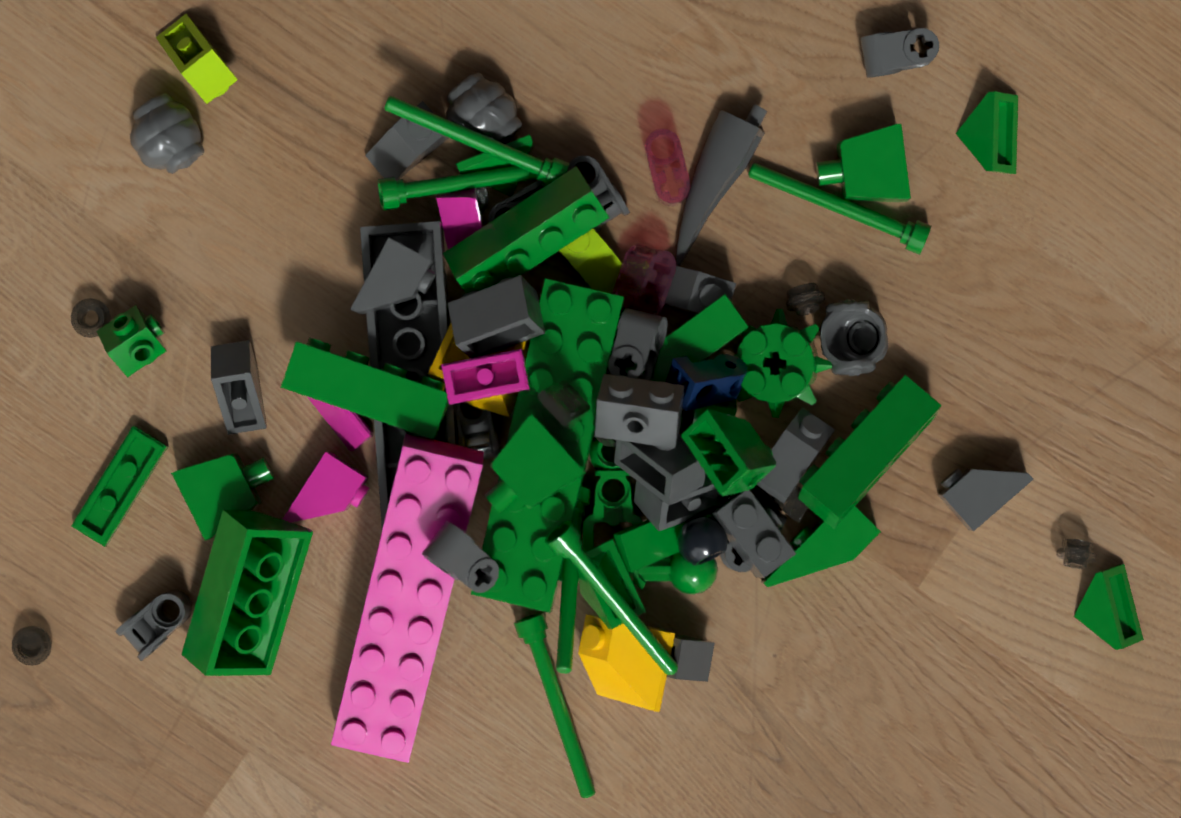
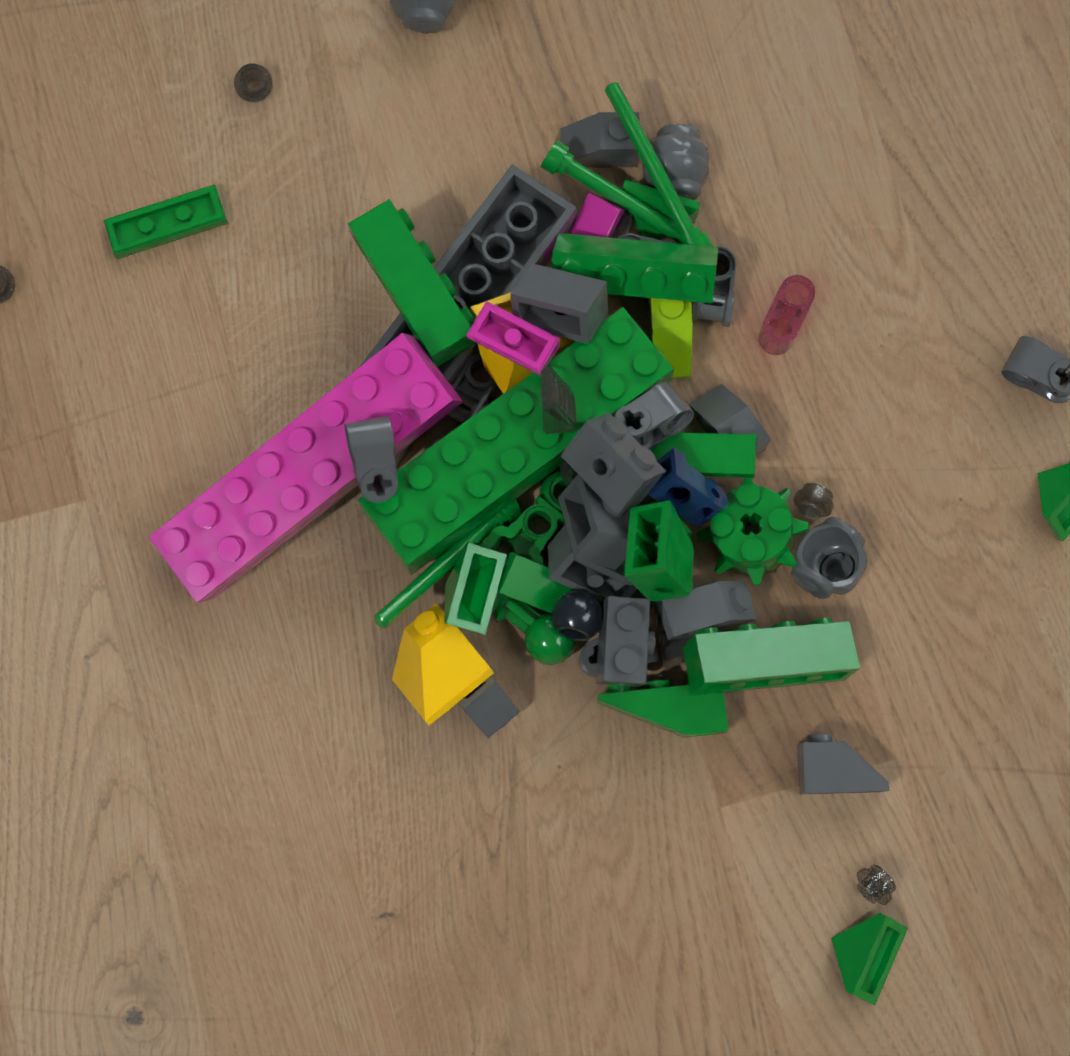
camera: 40 degrees right, 10 degrees down
(132, 340) = (269, 118): green brick -> none
(150, 625) = (94, 341): dark grey piece -> none
(221, 486) = (237, 283): green torso -> none
(238, 387) = (317, 216): dark grey slope -> none
(246, 594) = (187, 371): green slope -> none
(328, 490) = (316, 347): dark pink slope -> none
(346, 424) = (375, 306): dark pink slope -> none
(394, 278) = (503, 216): dark grey slope -> none
(531, 468) = (490, 434): green torso -> none
(533, 633) = (383, 587): green piece -> none
(566, 541) = (467, 518): green piece -> none
(645, 278) = (704, 381): clear pink beam -> none
(720, 164) = (832, 348): dark grey piece -> none
(869, 167) = (949, 440): green torso -> none
(910, 234) = (939, 518): green piece -> none

